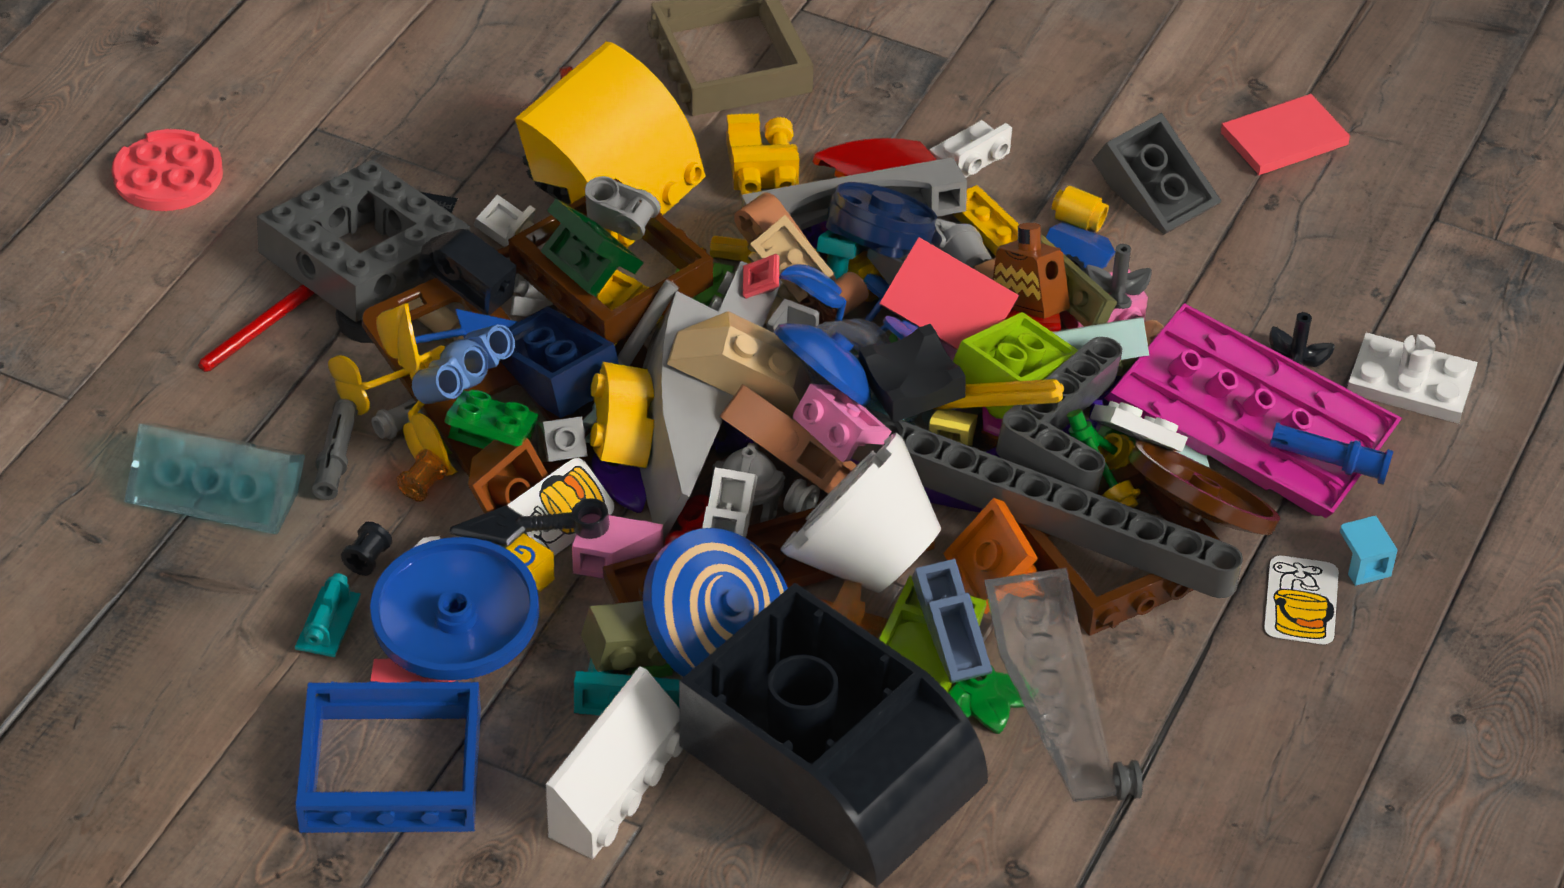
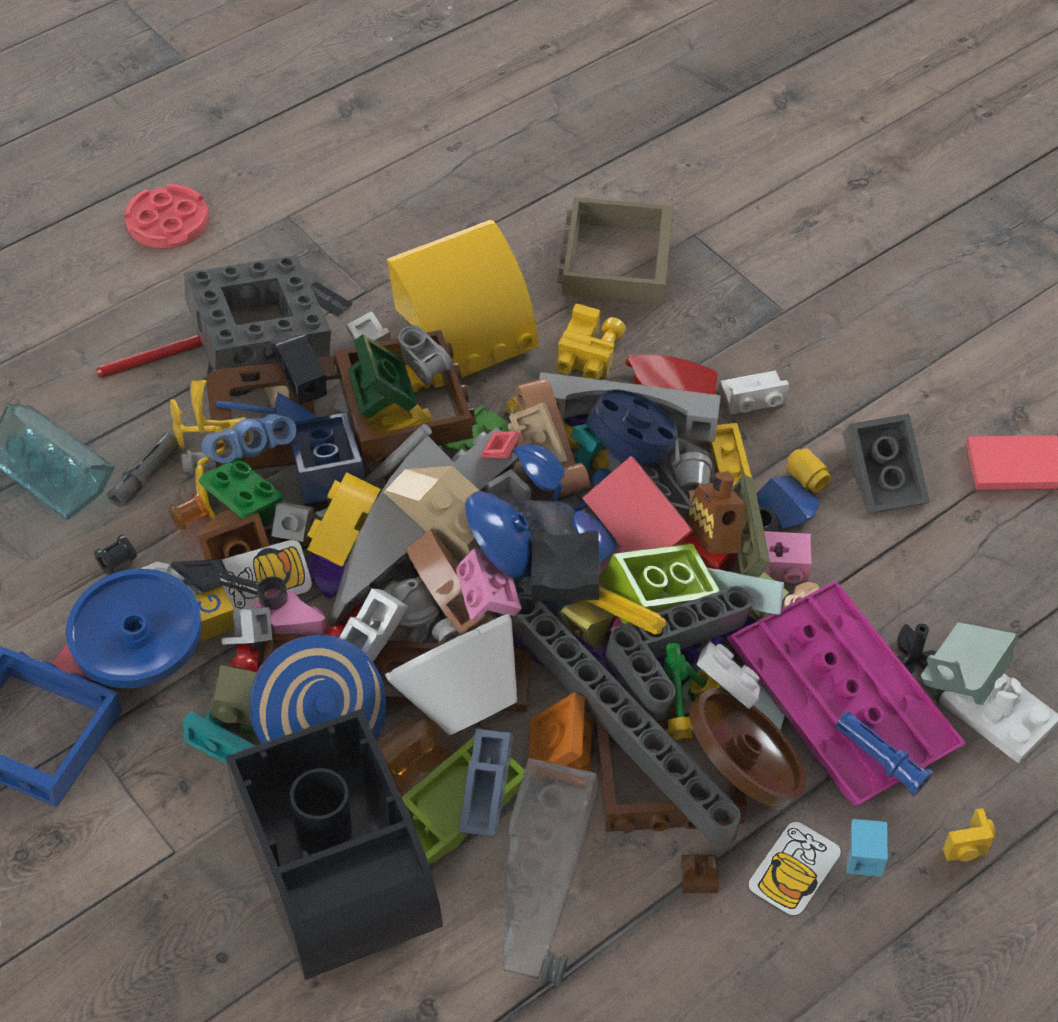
camera: 25 degrees right, 5 degrees up
(329, 617) = (56, 600): teal hinge -> none
(582, 562) = (250, 626): none -> light grey panel
(593, 594) = (246, 658): none -> red plate
(613, 766) = (167, 798): white slope -> none
(988, 699) = (484, 853): green plate -> none
(1121, 281) = (788, 542): dark grey plant -> none
(1213, 637) = (699, 874): none -> reddish brown tile
(1362, 336) = (970, 661): none -> piece
(1462, 505) = (970, 842): none -> yellow bracket

